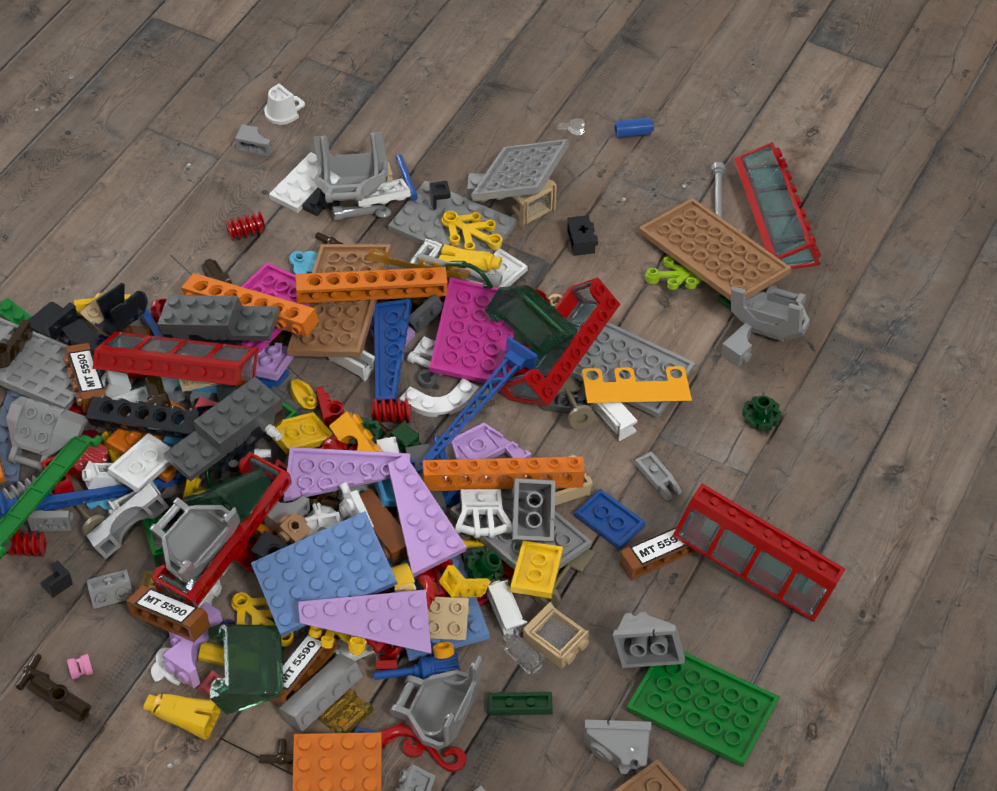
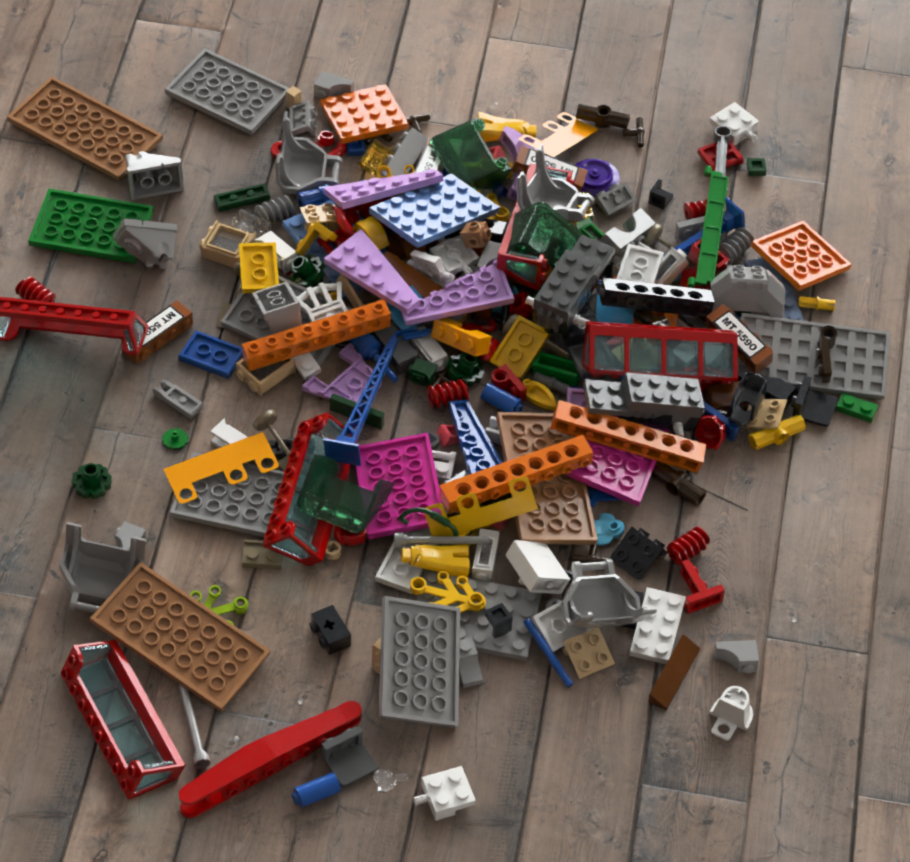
camera: 160 degrees right, 0 degrees up
(85, 666) = (600, 140): bright pink wheel -> none
(112, 631) = (599, 177): none -> dark purple piece
(126, 661) = (564, 136): none -> piece
(254, 188) = (701, 595): none -> red bracket
(283, 232) = (637, 552): none -> black bracket
(295, 156) = (673, 673): none -> reddish brown slope
(339, 391) = (501, 399): none -> blue brick
(384, 225) = (538, 567): none -> white piece
(391, 751) = (326, 138): none -> red plate
(408, 379) = (447, 435): none -> coral slope
(435, 406) = (408, 417): white plate -> none
(443, 650) = (315, 197): light orange tile -> none
(490, 418) = (345, 407): none -> dark green tile
(495, 662) = (275, 208): none -> light grey piece
(533, 104) = (446, 792): none -> white plate
(600, 143) = (348, 757): none -> dark grey bracket
(625, 317) = (260, 557): none -> dark tan plate
(665, 153) = (265, 758): none -> red piece
(670, 441) = (175, 438): none -> green piece
(782, 625) = (33, 290): none -> red piece

